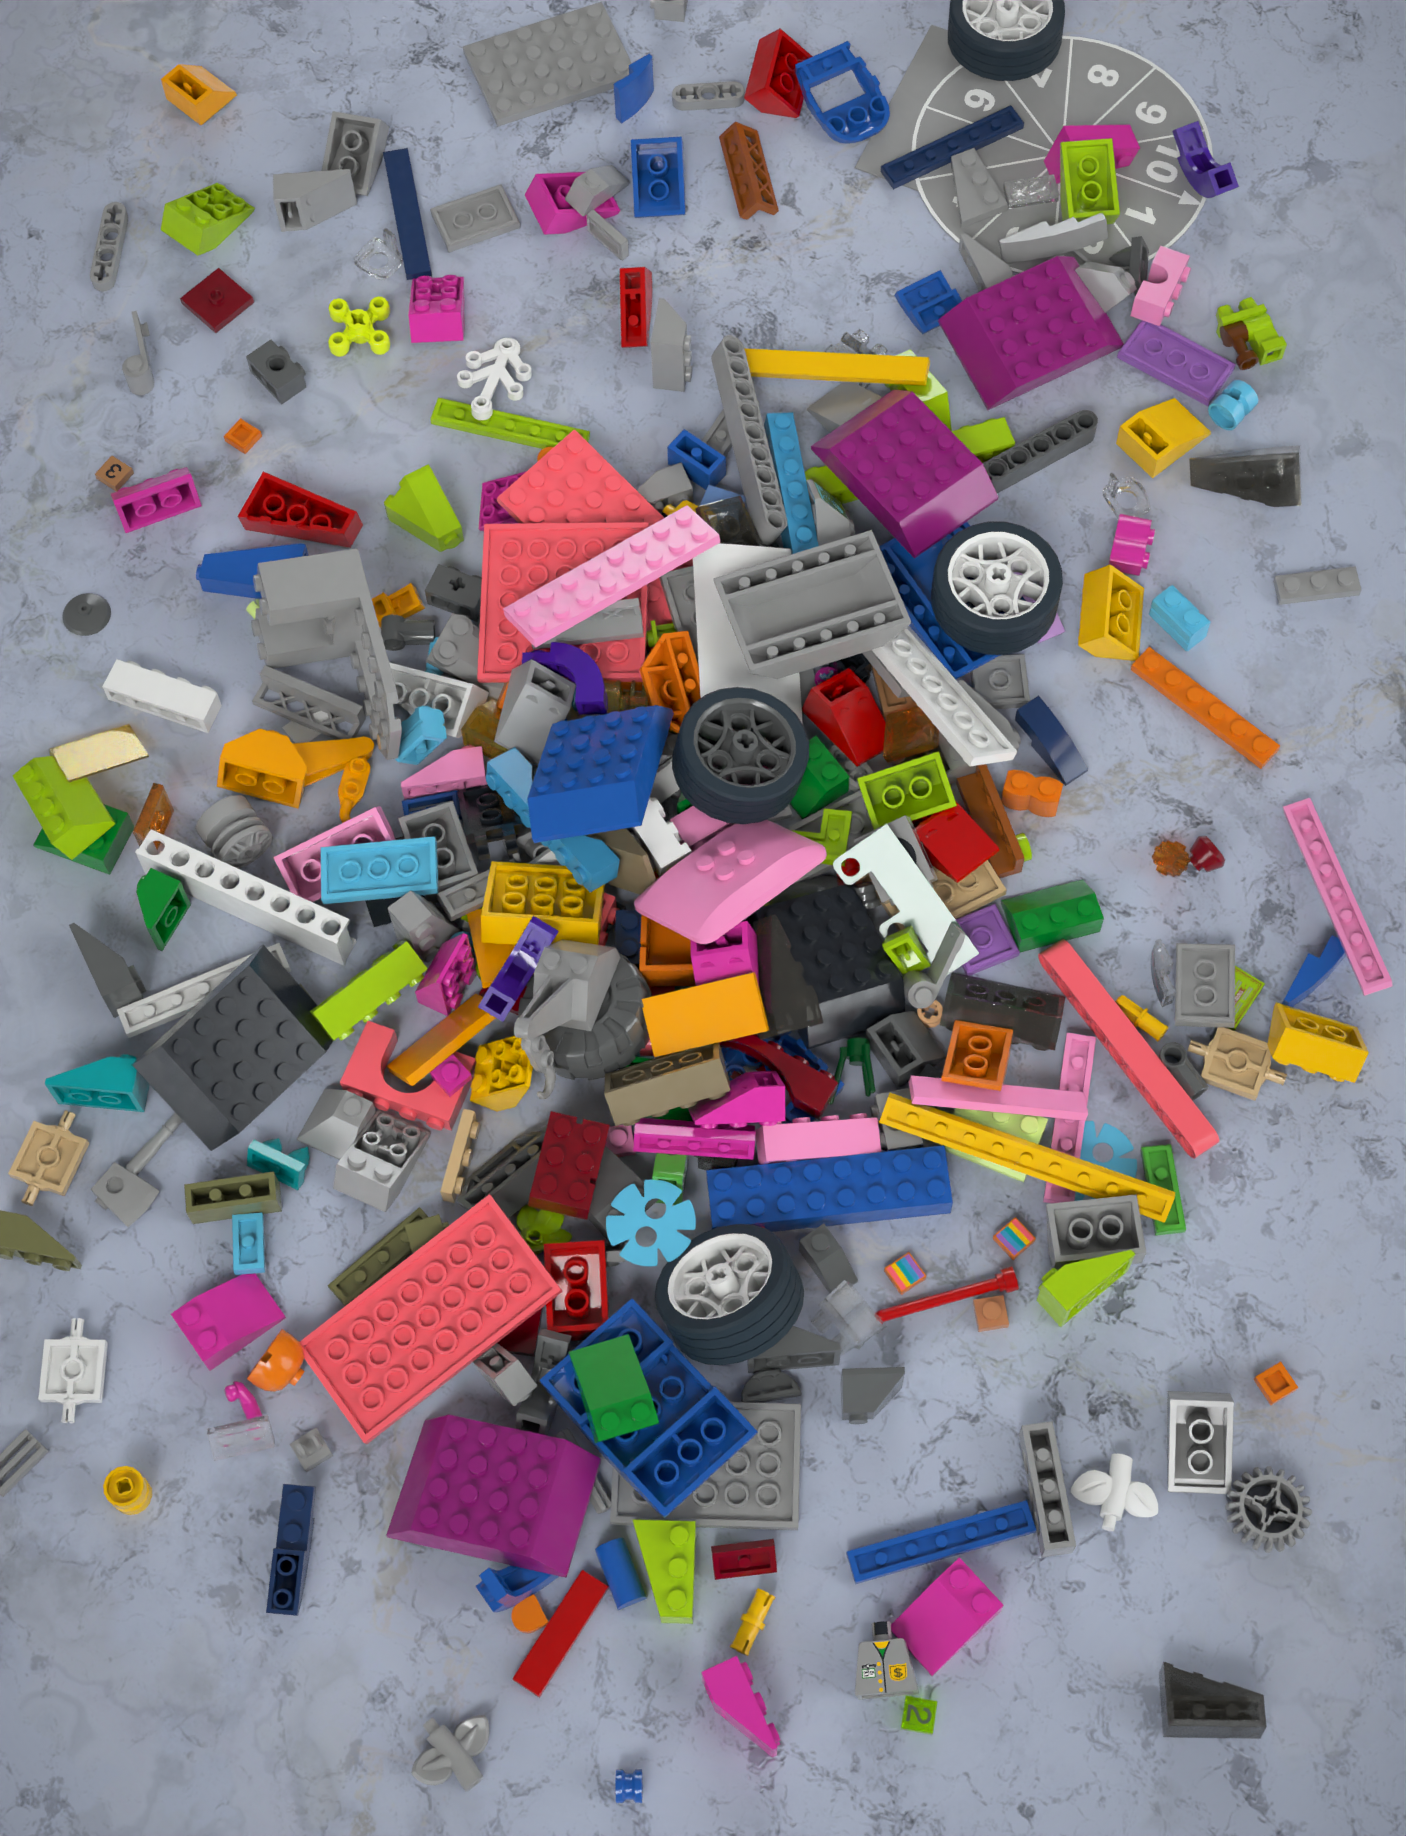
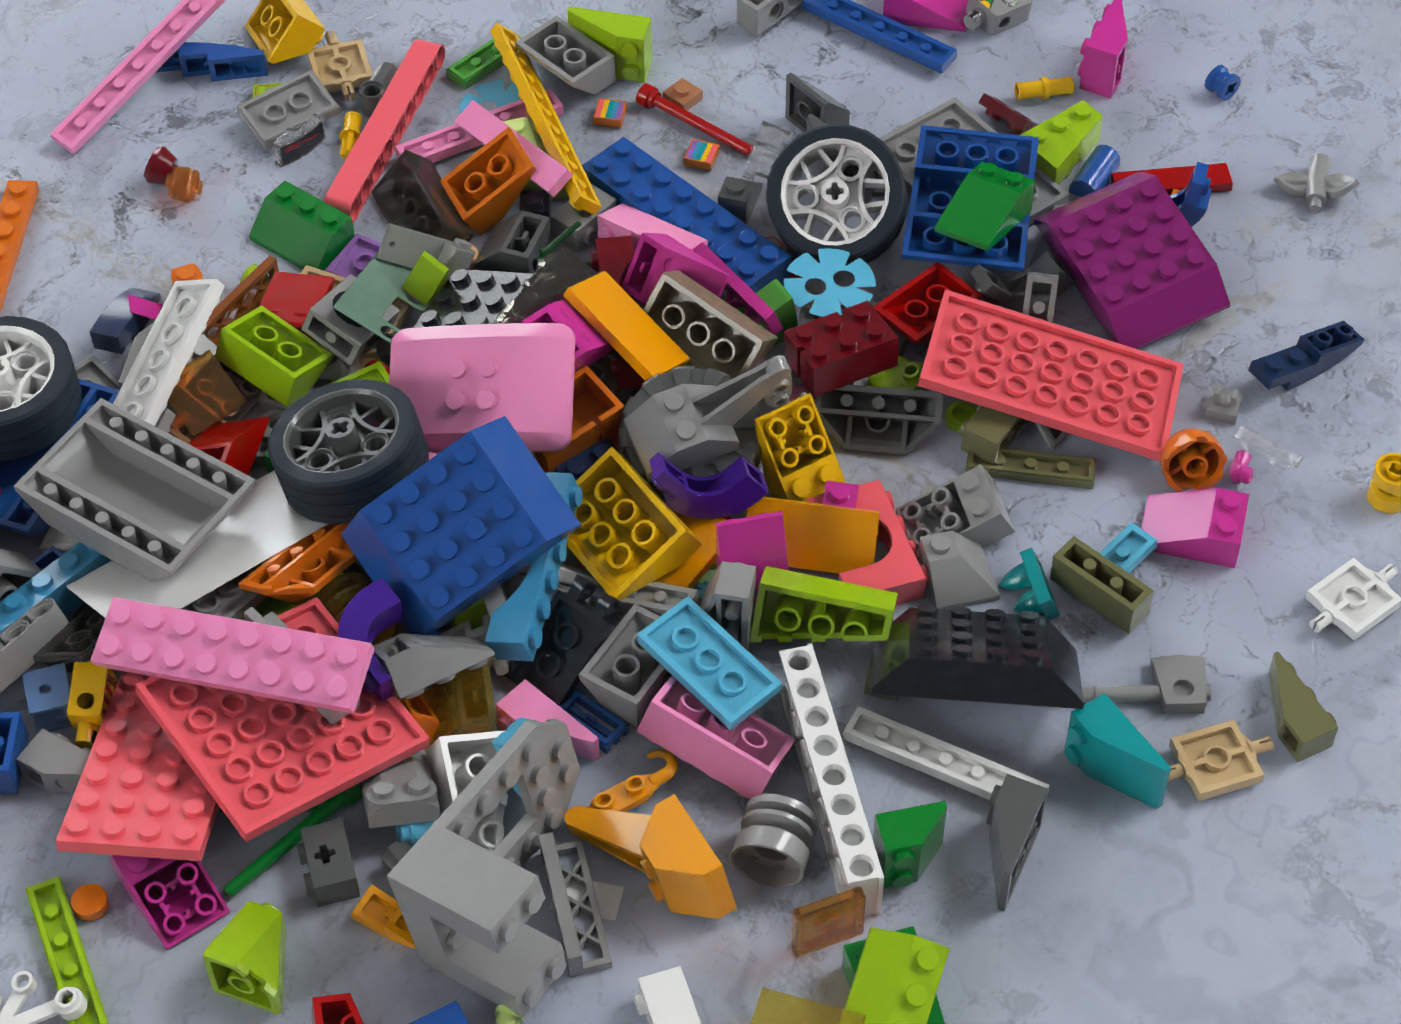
camera: 130 degrees left, 15 degrees down
(460, 1156) = (901, 463): tan plate -> none
(1041, 755) = (144, 307): none -> dark pink sticker

